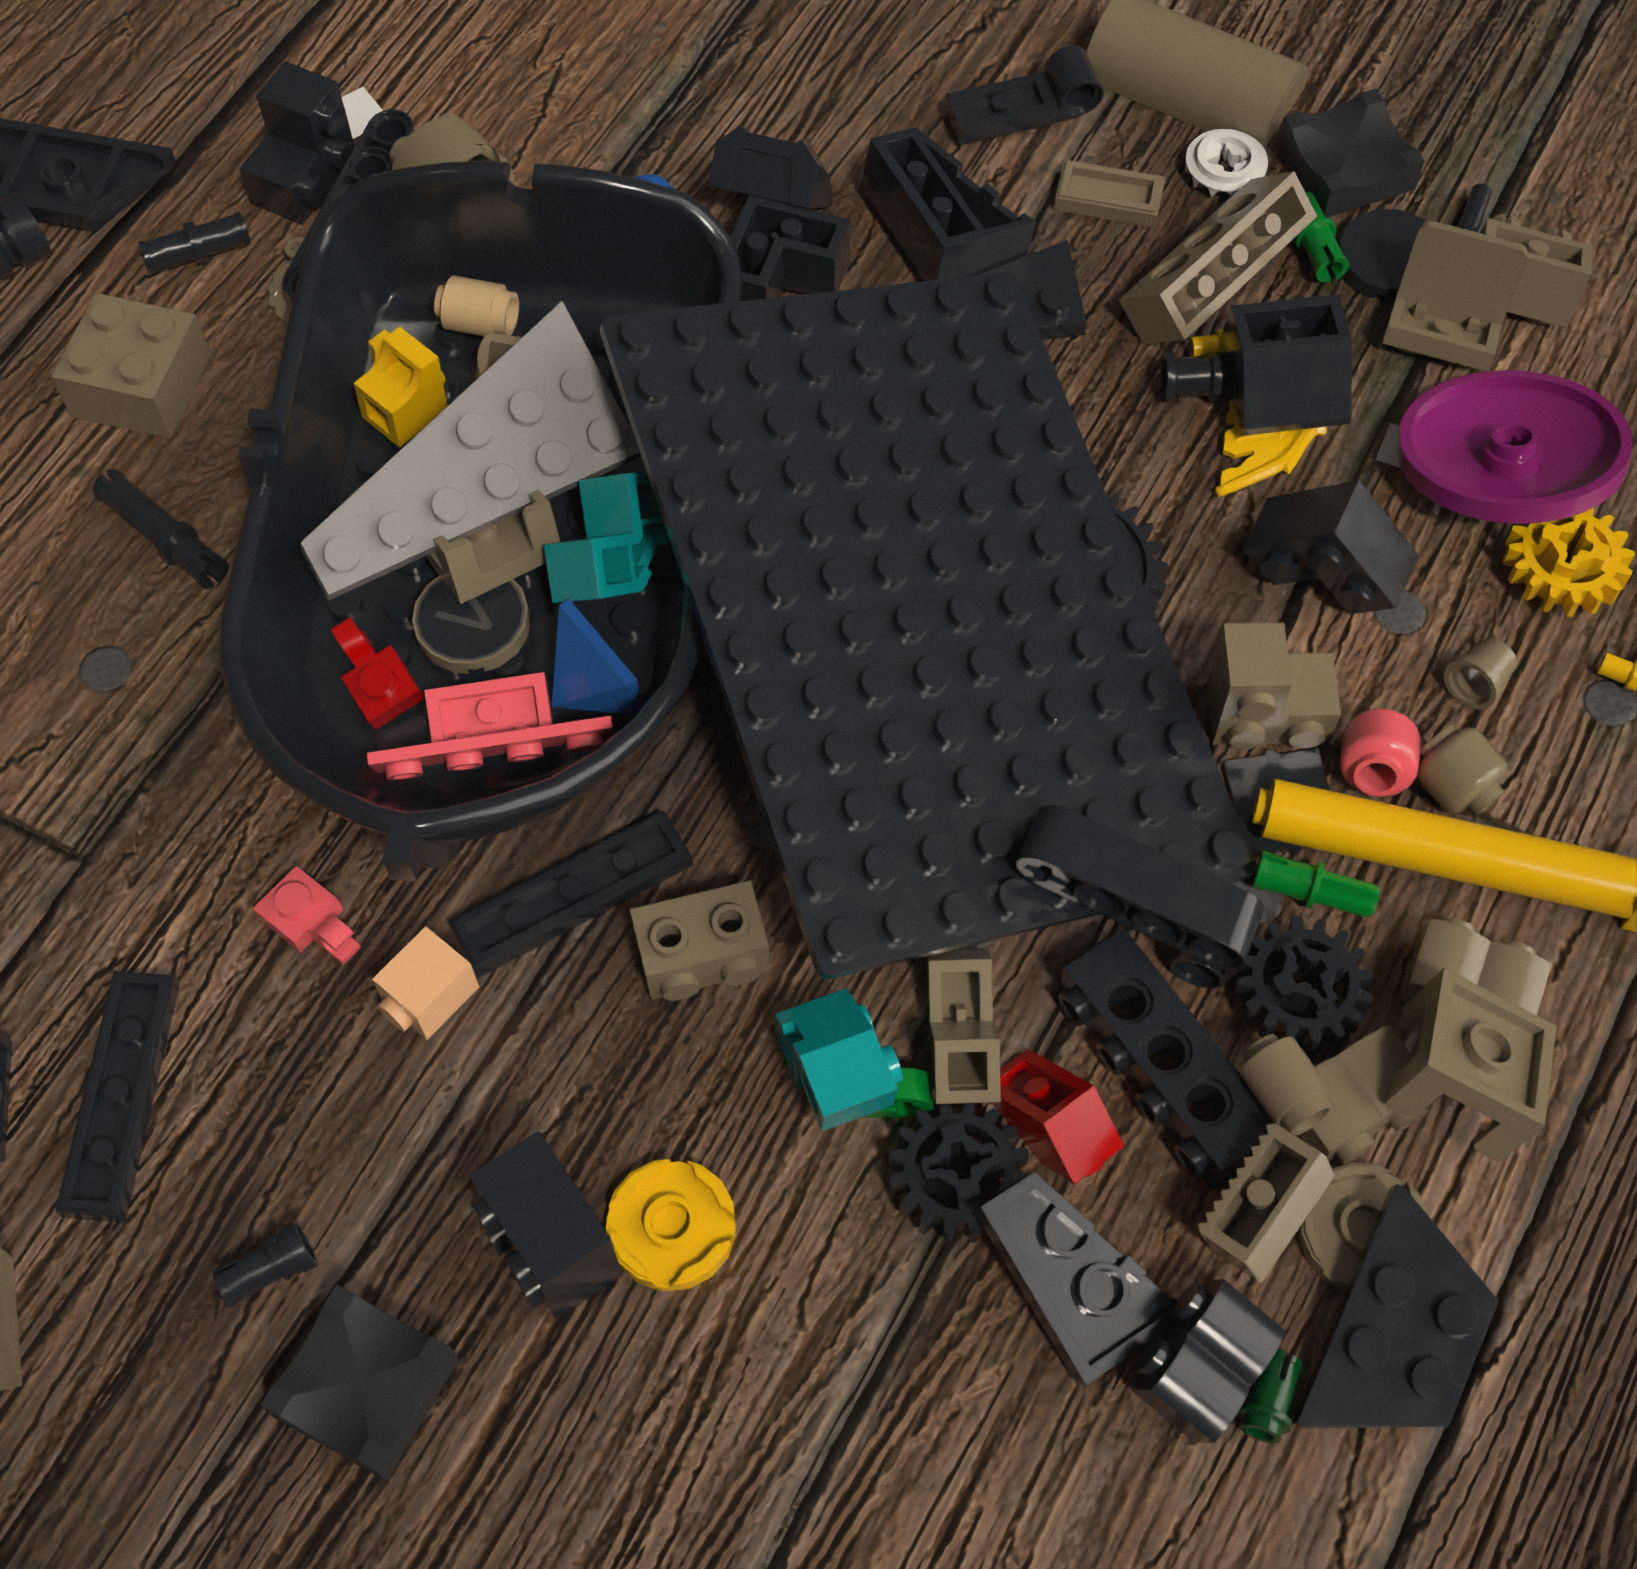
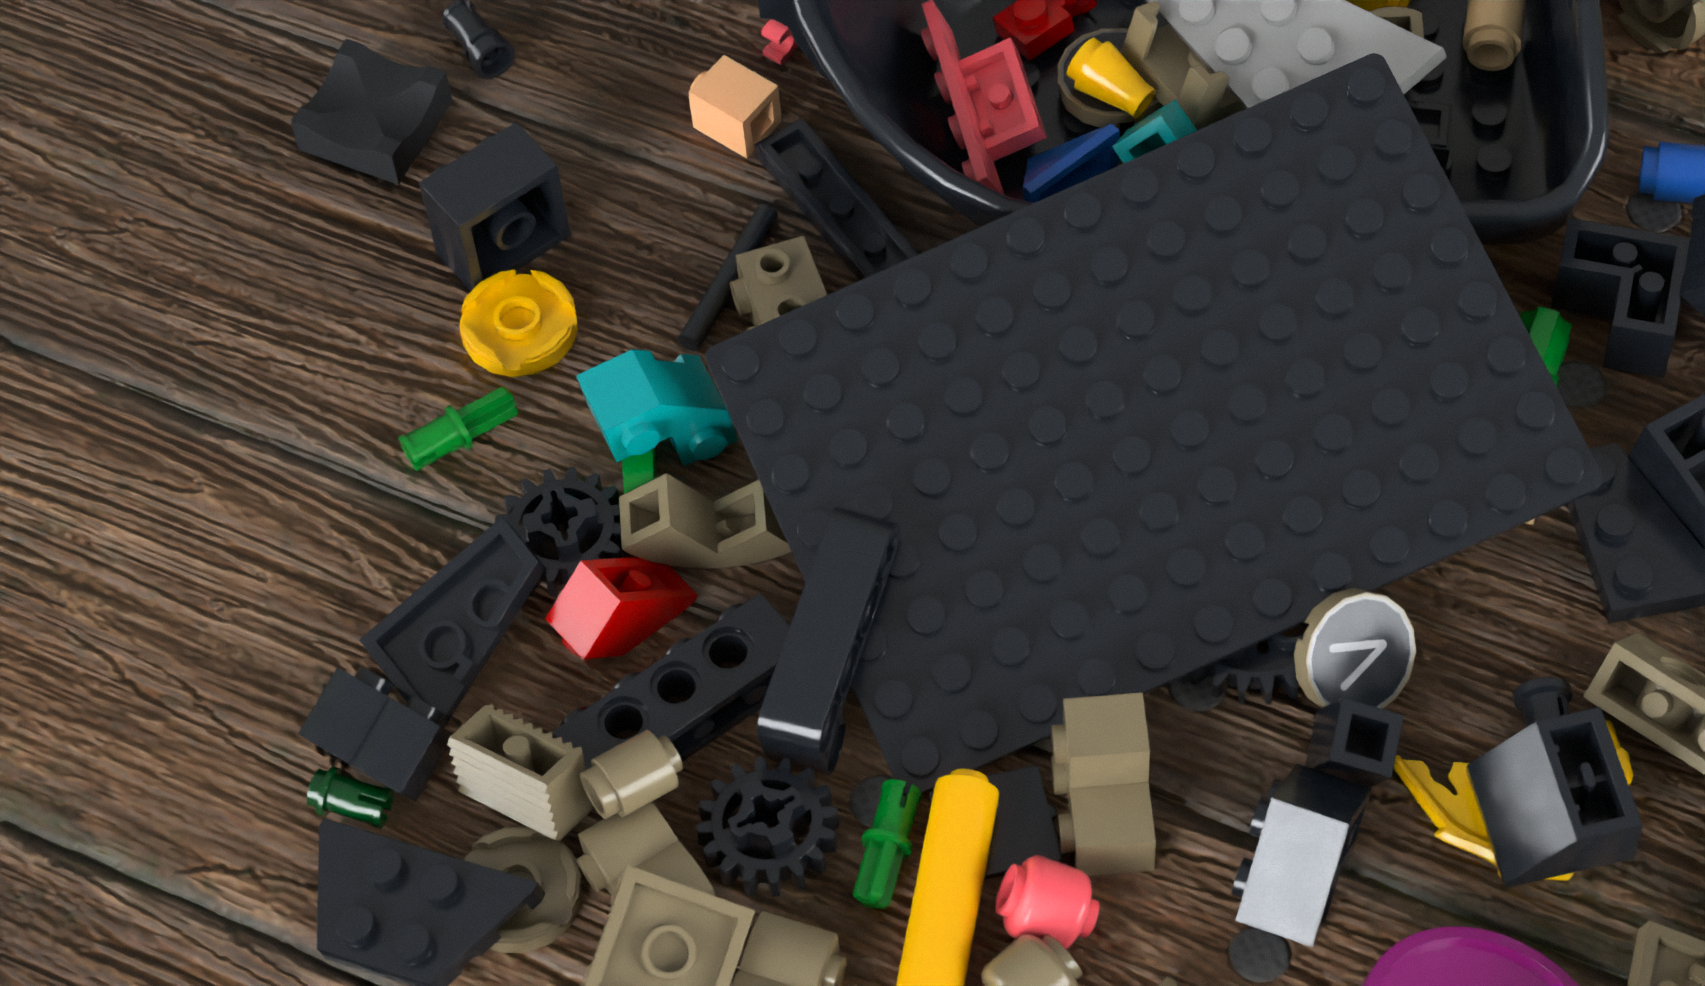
camera: 90 degrees right, 5 degrees down
(490, 609) = (1108, 76): none -> yellow cone
(640, 1006) = (719, 289): none -> black bar
(810, 1285) = (457, 428): none -> green axle
(1138, 488) = (1355, 649): none -> tile
(1229, 503) = (1355, 742): none -> black brick

